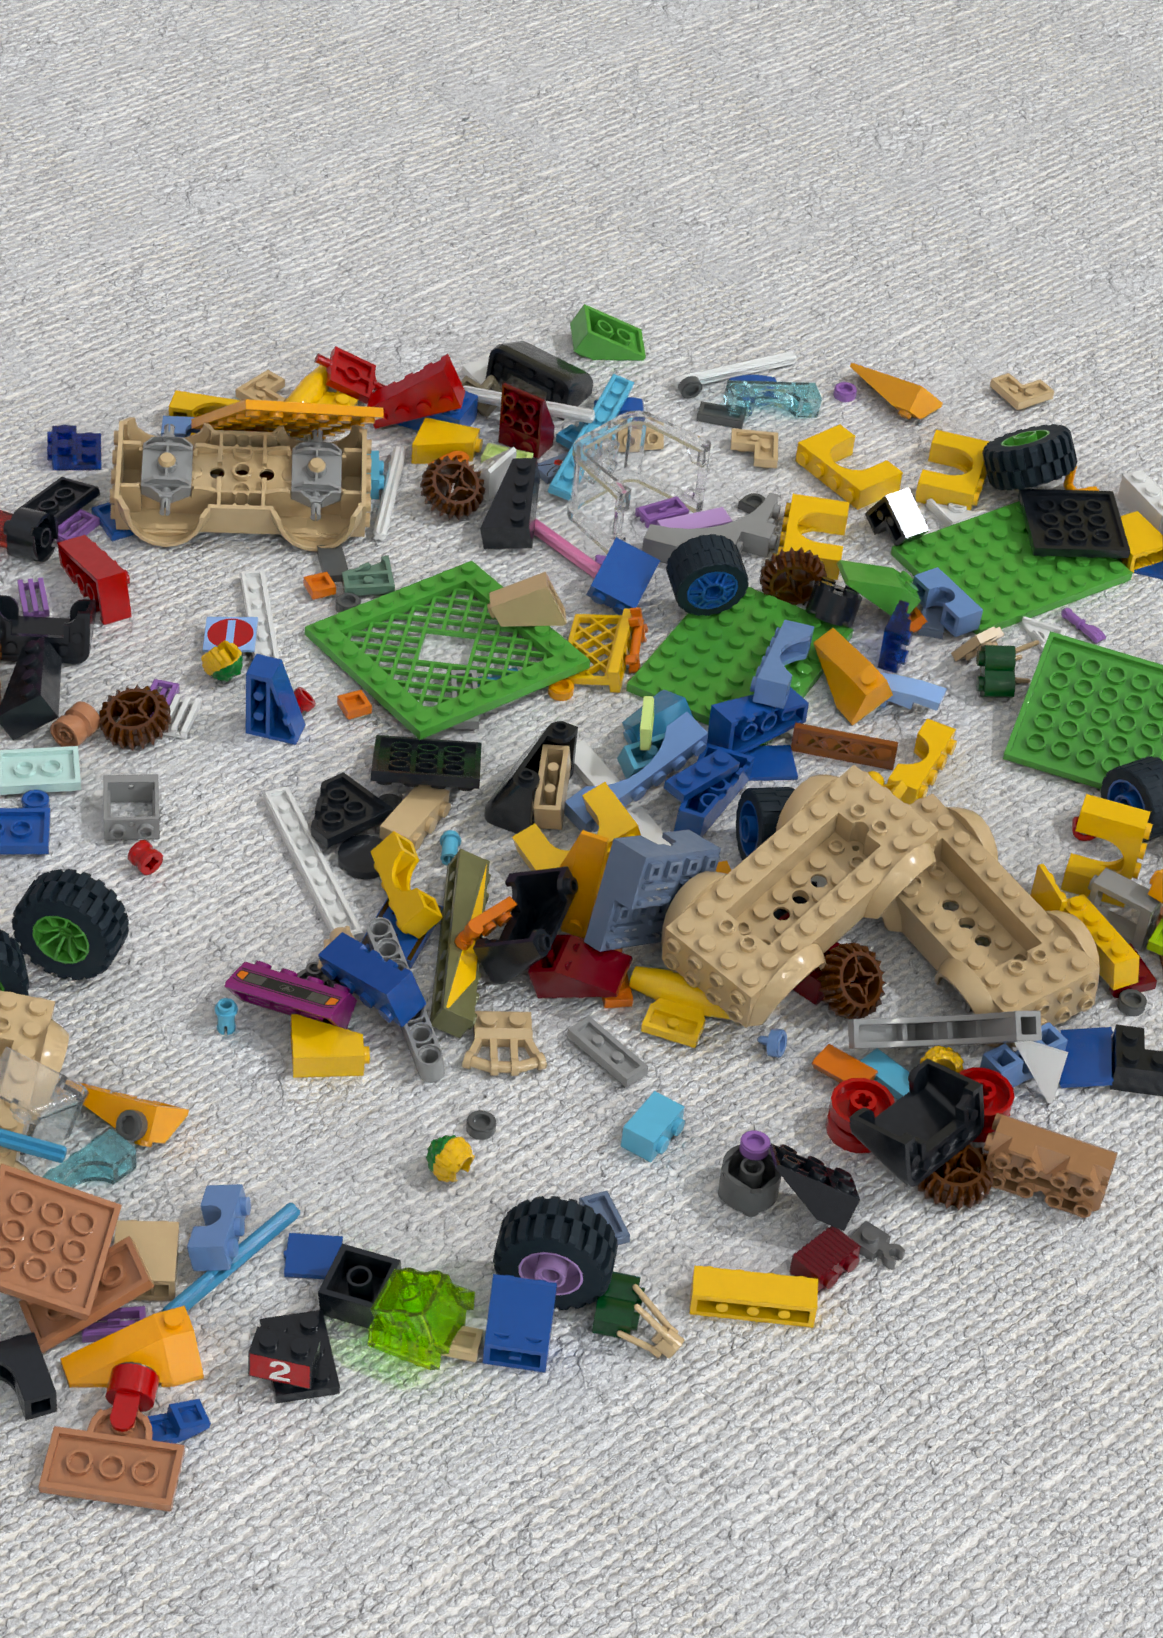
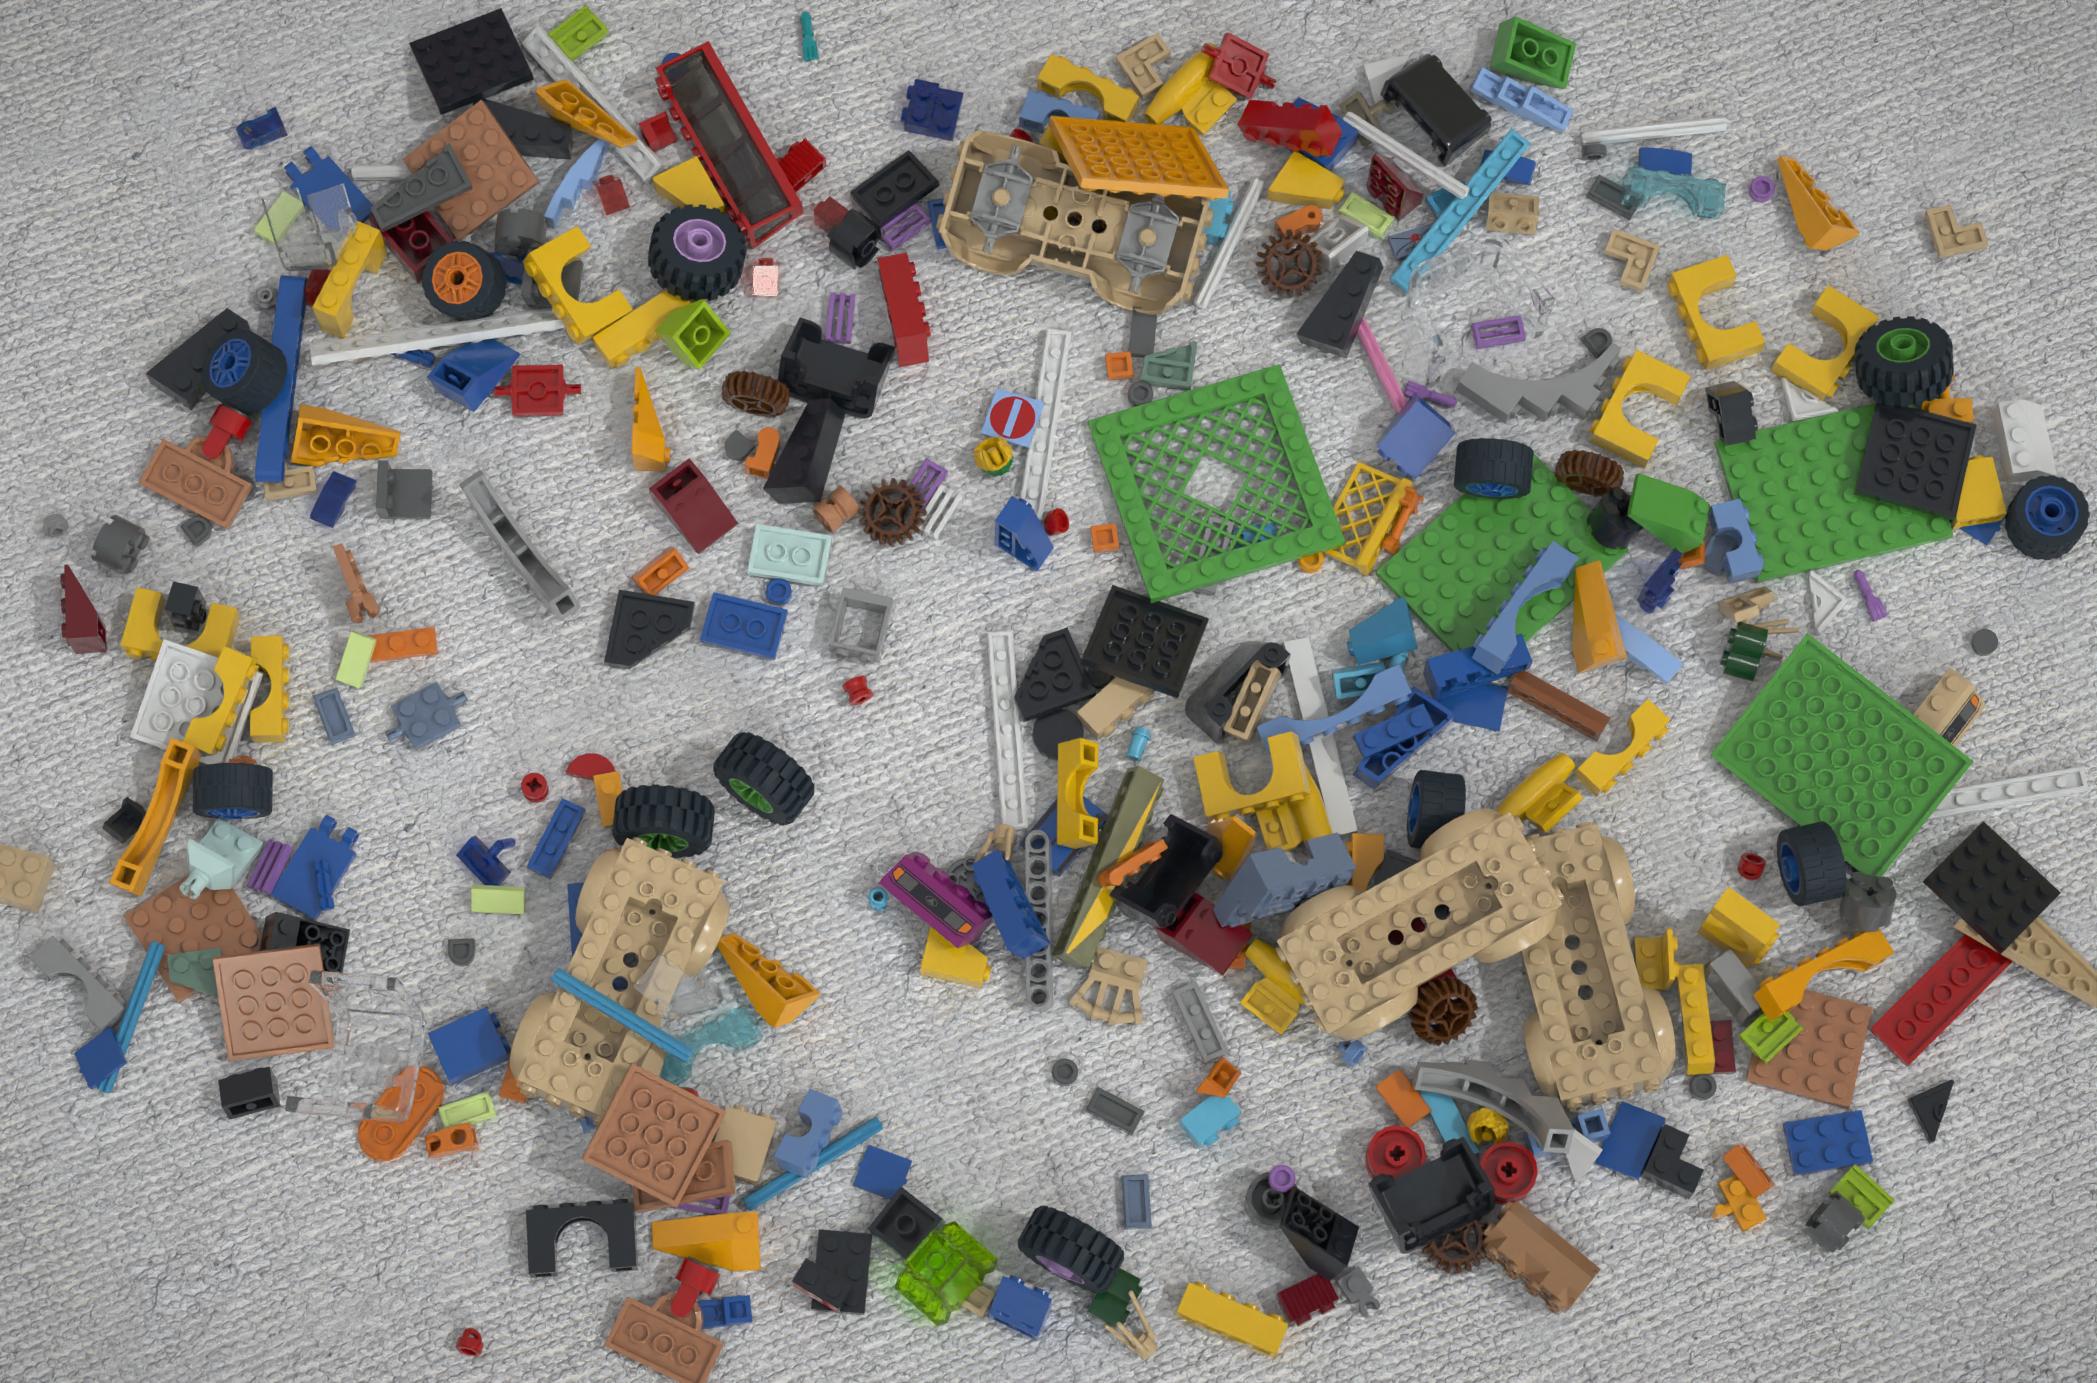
camera: 20 degrees right, 30 degrees up
(131, 1125) = (763, 1010): dark grey tile -> none
(448, 1156) = (1022, 1108): yellow piece -> none
(528, 603) = (1305, 462): tan slope -> none
(548, 1146) = (1115, 1111): none -> dark grey tile
(623, 365) = (1521, 100): none -> light blue slope
(647, 723) = (1361, 658): yellowish green tile -> none
(647, 1083) = (1219, 1079): none -> orange slope
(701, 519) = (1525, 358): lavender tile -> none

